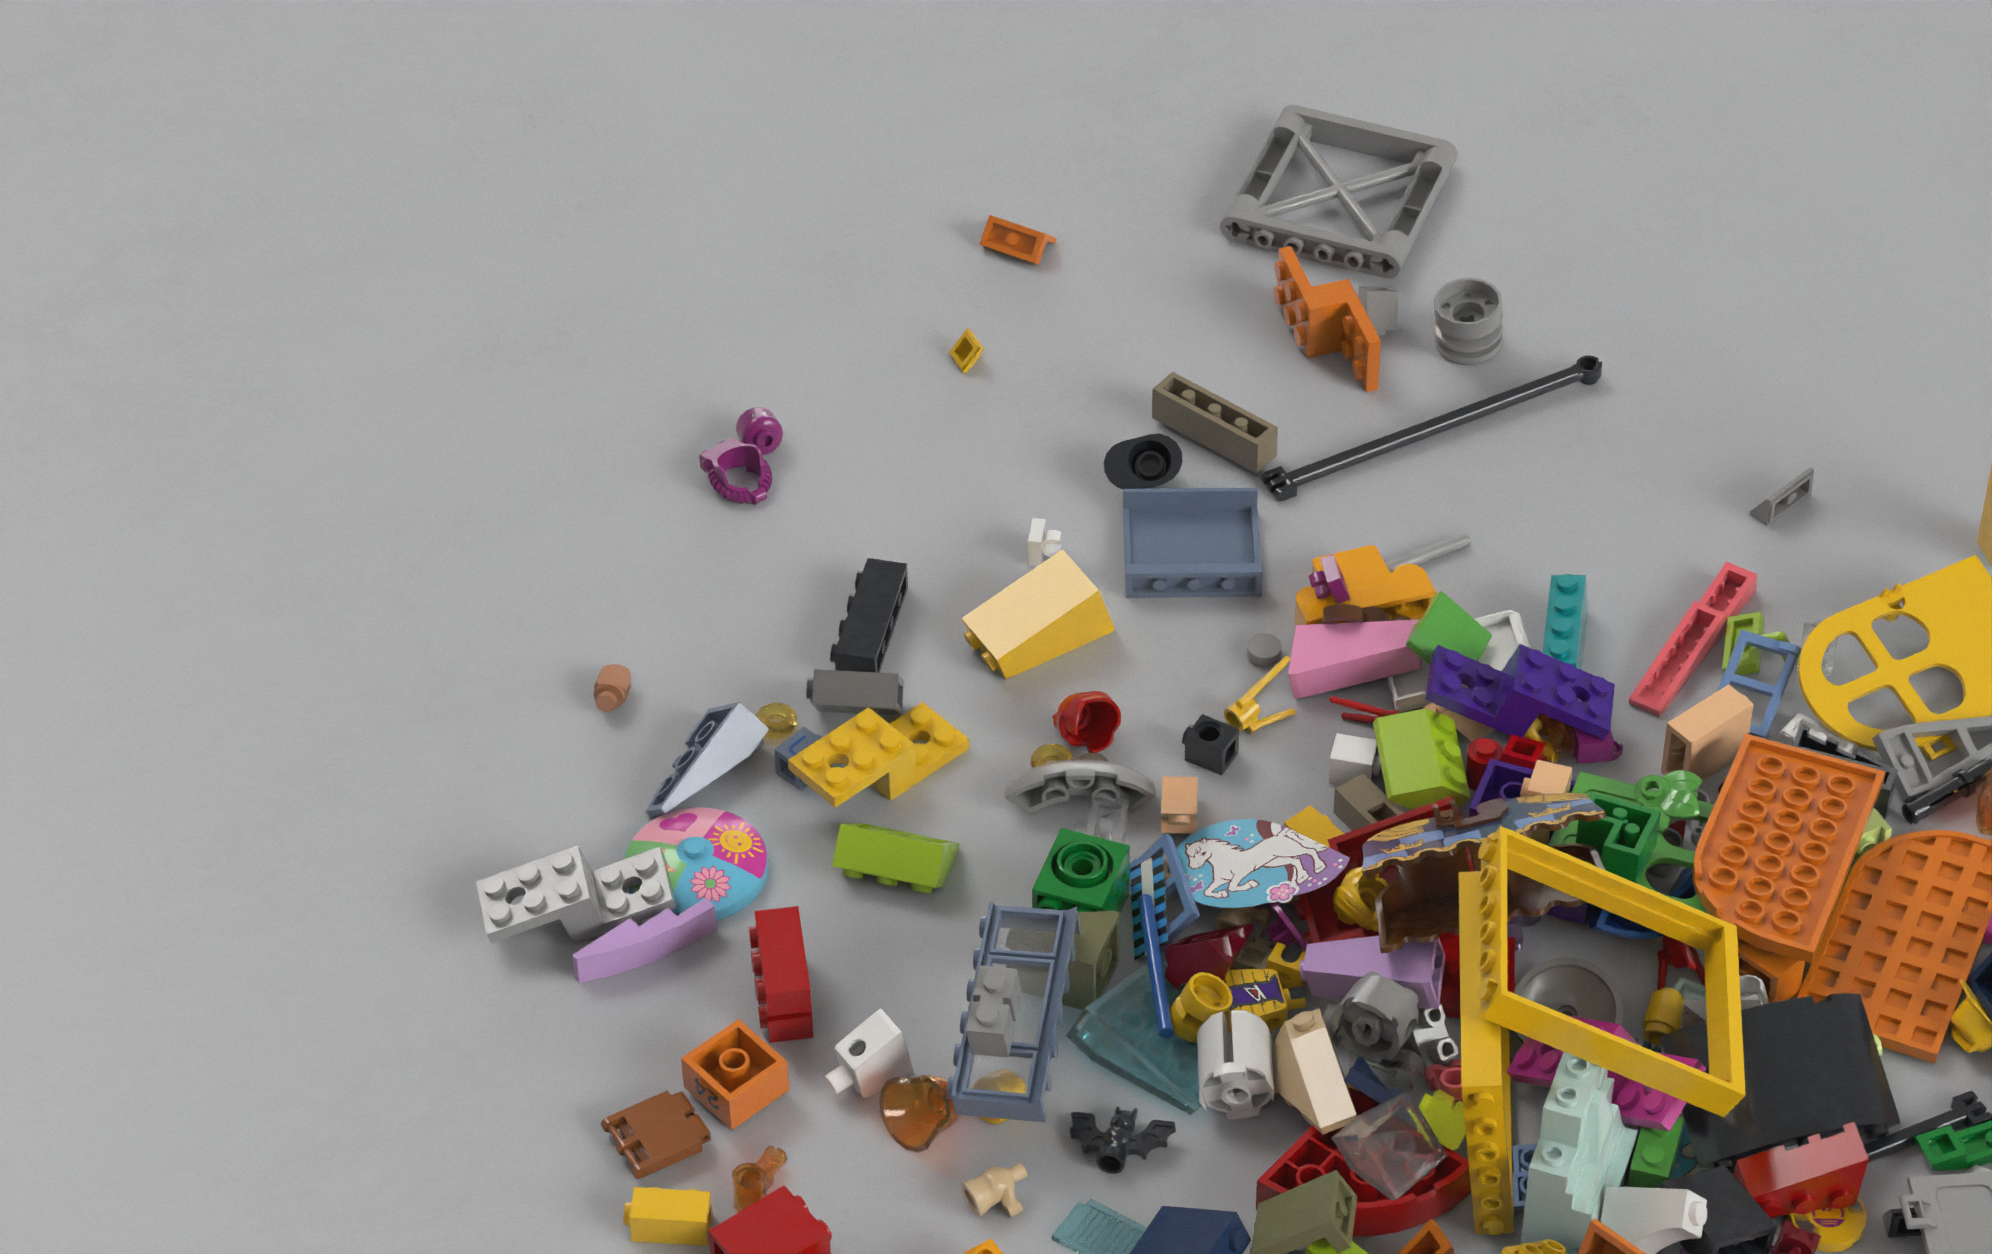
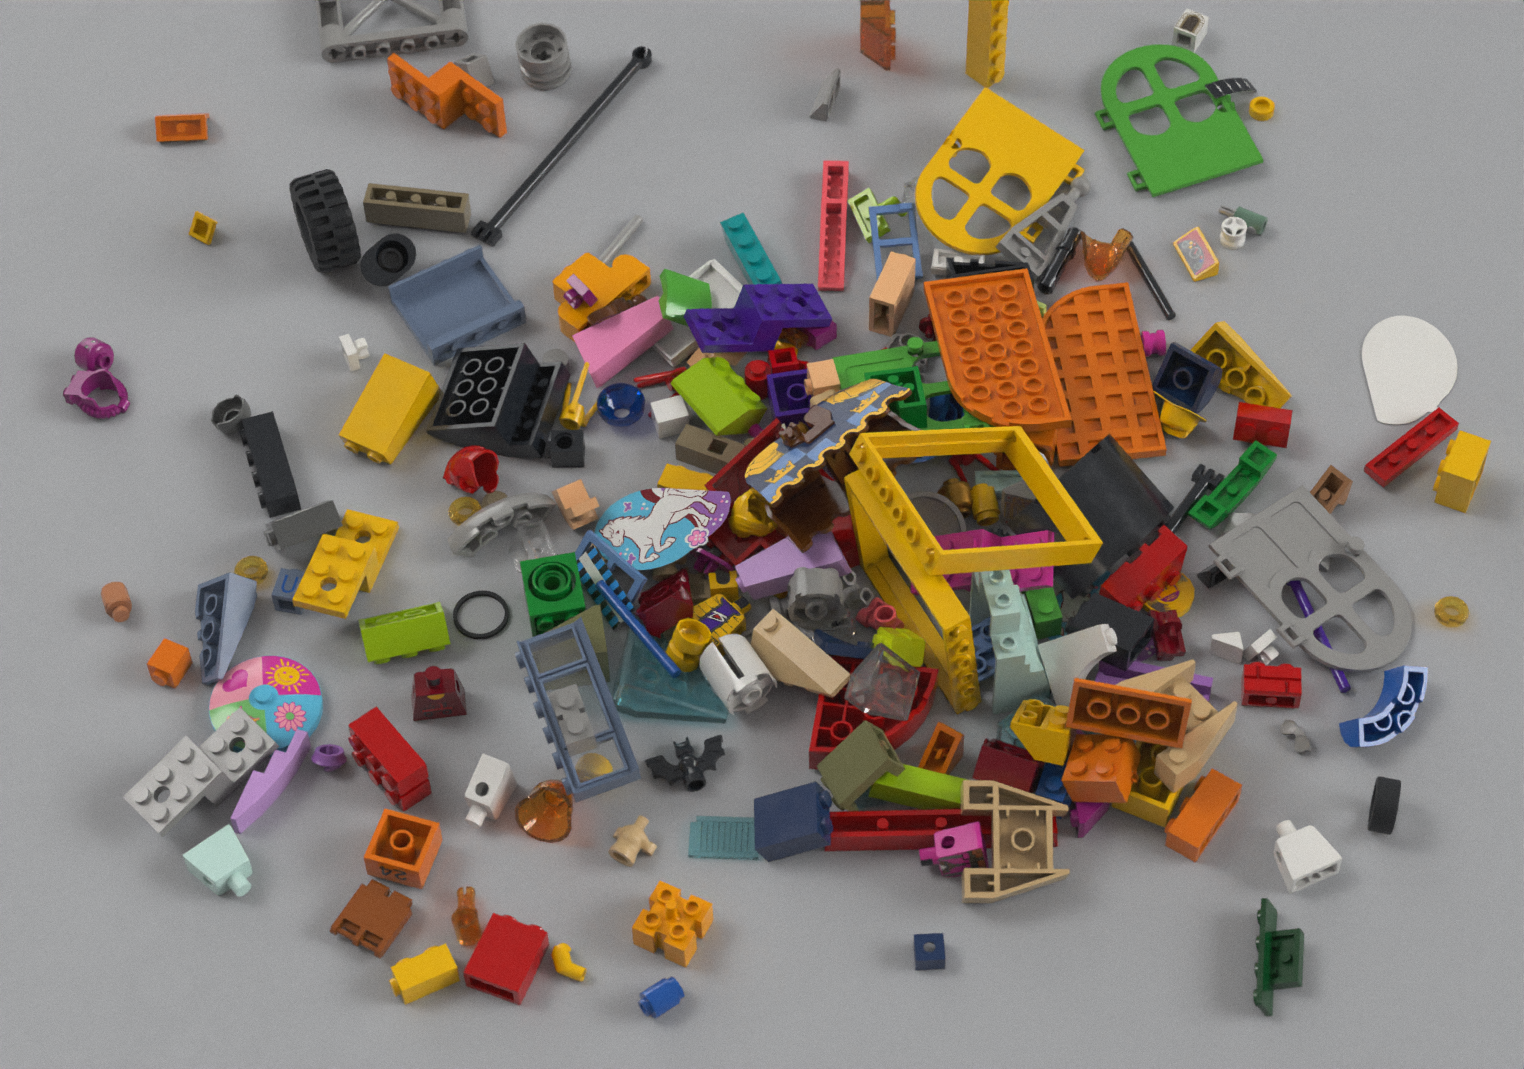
camera: 30 degrees left, 10 degrees up
(535, 998) = (220, 863): none -> light aqua torso
(621, 774) = (169, 663): none -> orange brick
(725, 946) = (329, 756): none -> medium lavender hat
(859, 547) = (229, 413): none -> dark grey hair
(885, 933) = (437, 694): none -> dark red torso
(989, 853) = (485, 635): none -> black piece
(1092, 388) = (325, 221): none -> black tyre
(1169, 661) = (499, 400): none -> black slope
(1305, 715) = (621, 397): none -> clear blue piece
(1636, 992) = (959, 494): none -> pearl gold head
(1673, 795) = (909, 348): bright green plate -> none
(1889, 447) = (877, 32): none -> clear orange slope

